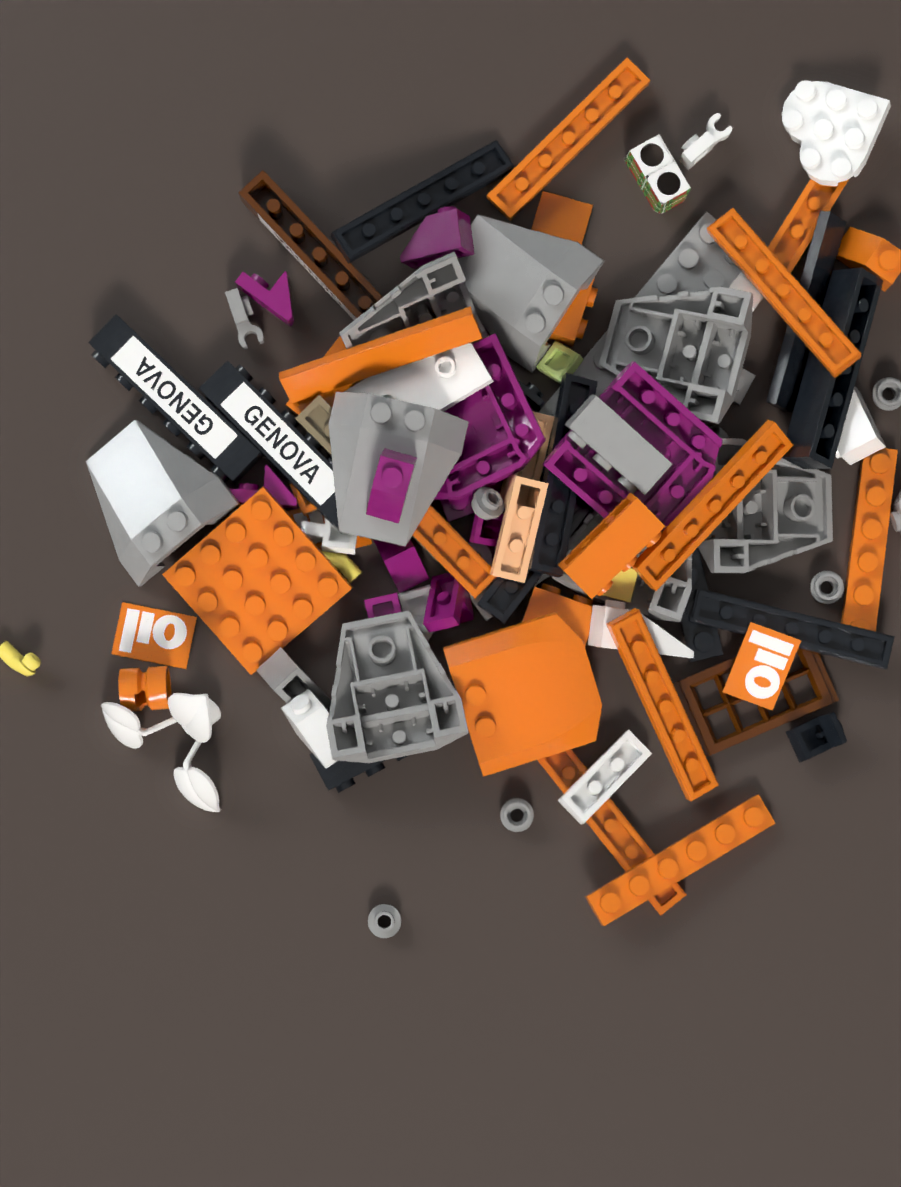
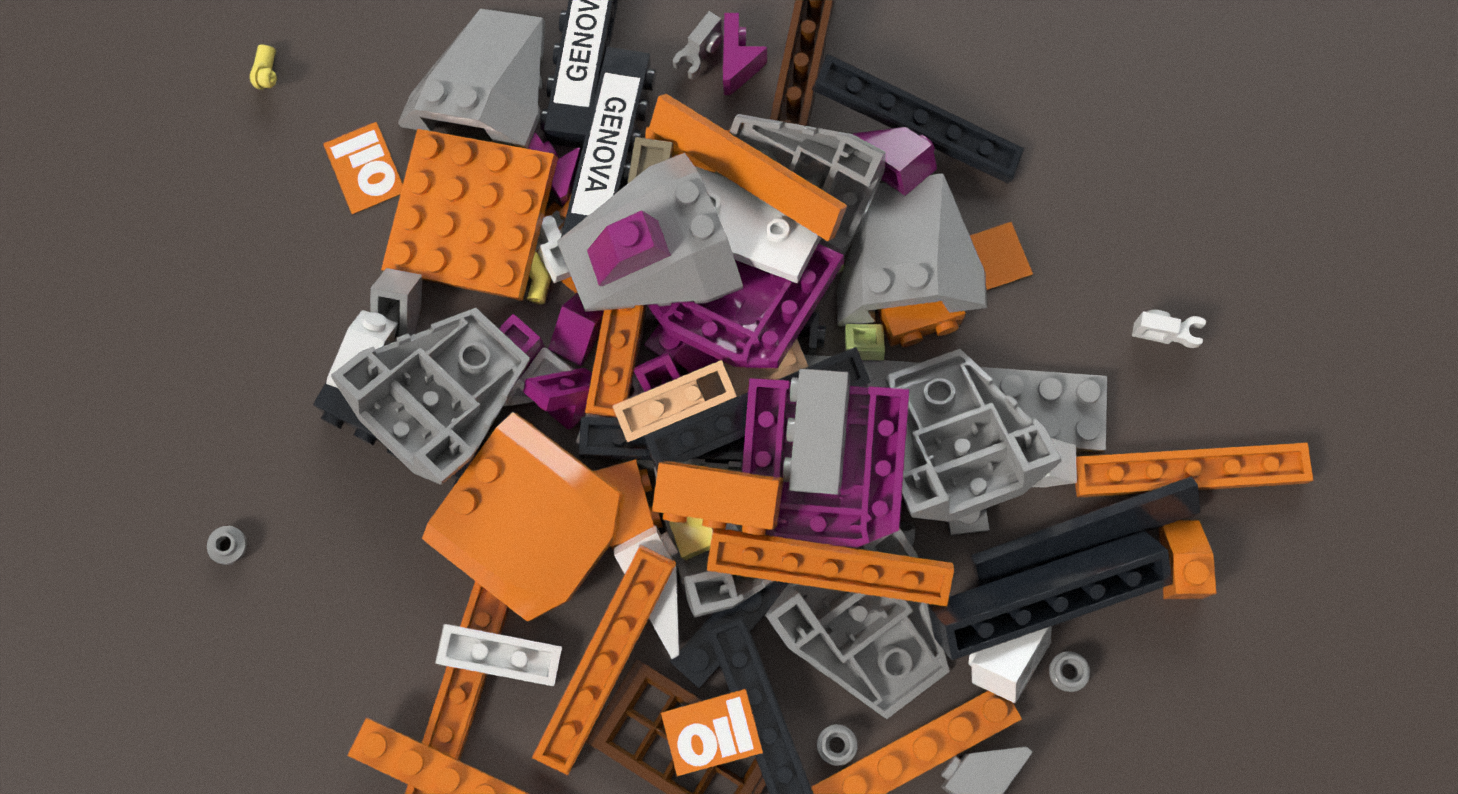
camera: 60 degrees right, 10 degrees down
(145, 688) = (305, 186): orange wheel -> none
(196, 716) = (302, 246): white plant -> none
(487, 503) = (671, 356): light grey plate -> none
(528, 815) = (399, 593): light grey plate -> none
(568, 139) = (1075, 208): orange plate -> none
(650, 190) = (1091, 336): white piece -> none
(784, 292) = (1085, 496): orange tile -> none
(833, 128) = (1277, 435): white plate -> none

